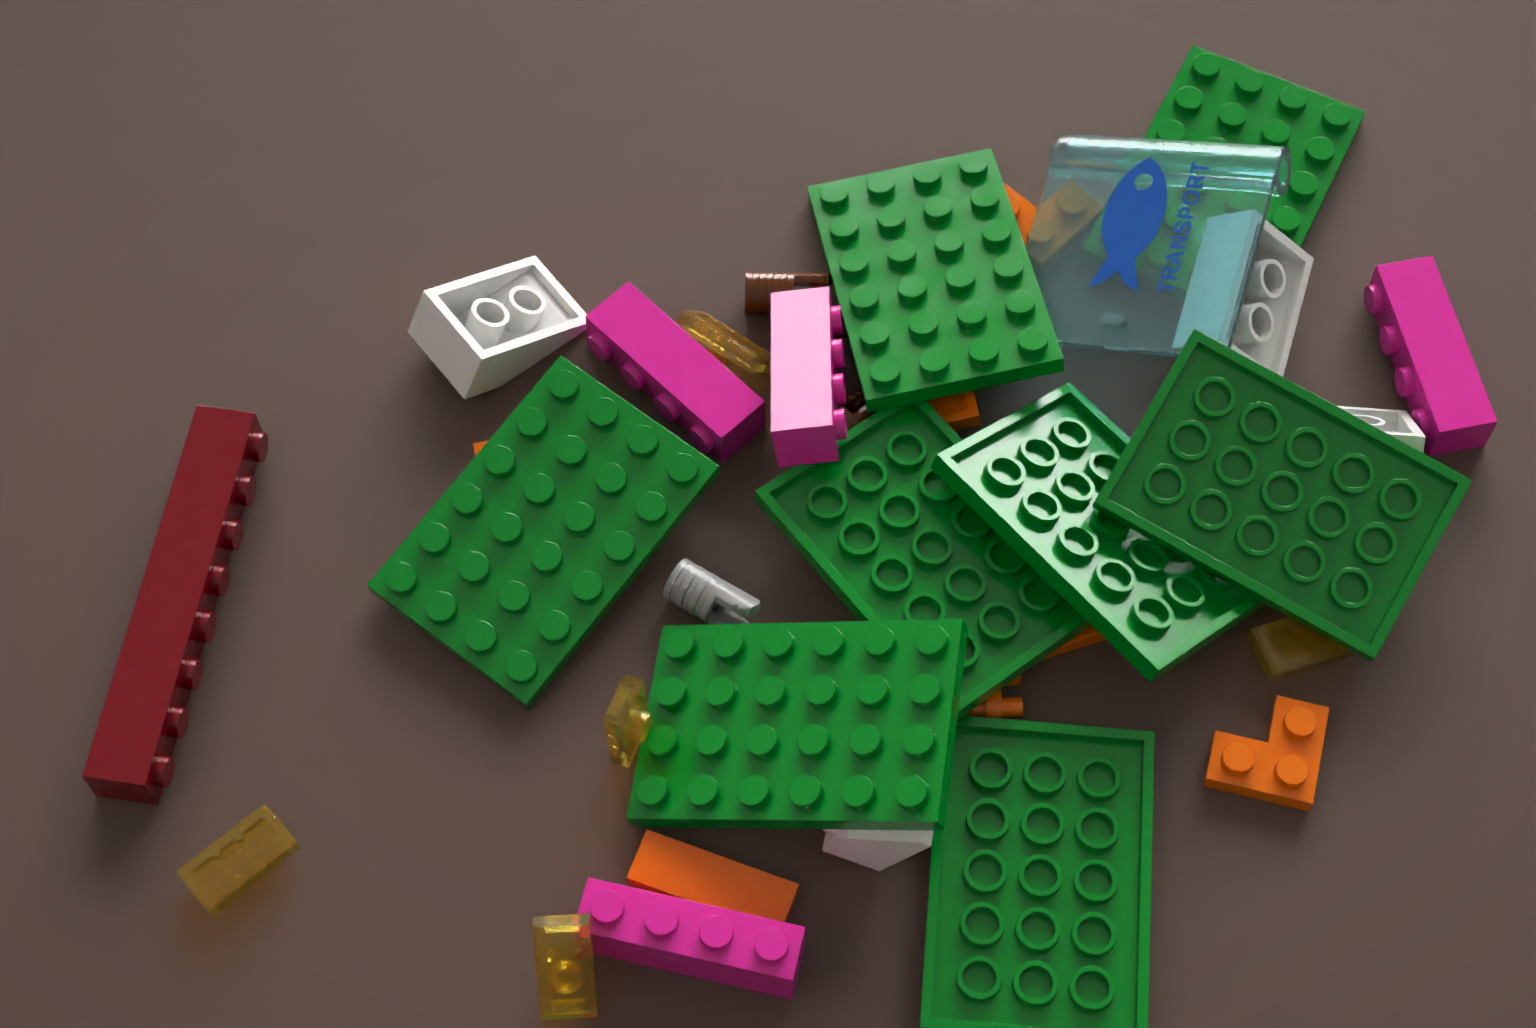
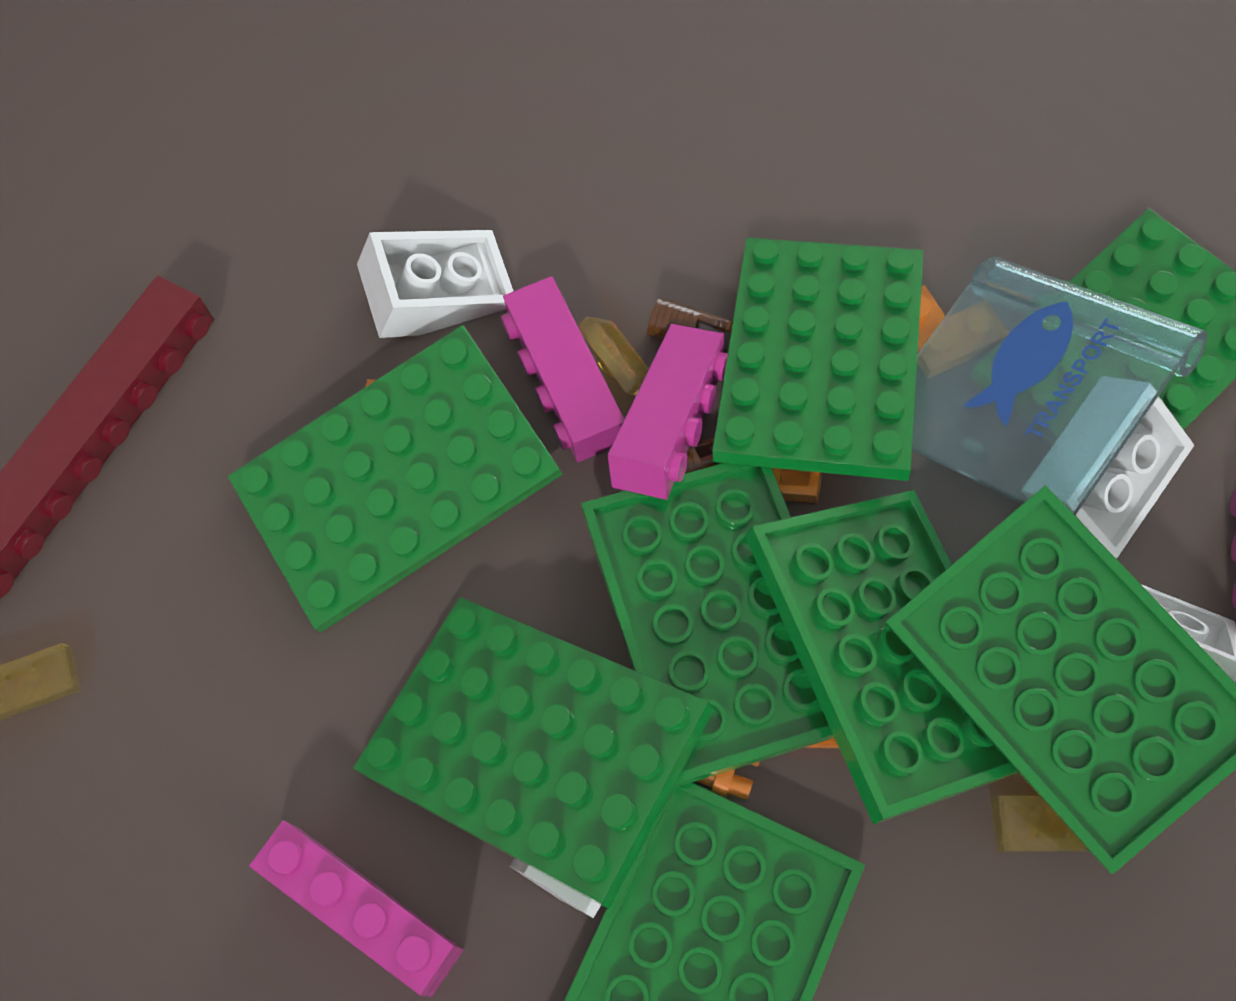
camera: 25 degrees right, 5 degrees up
(565, 966) = (232, 895): clear yellow plate -> none
(627, 720) = (380, 679): clear yellow plate -> none
(707, 878) = (405, 858): orange tile -> none
(708, 595) = (509, 585): light grey hinge -> none
(1276, 770) = (979, 943): orange plate -> none

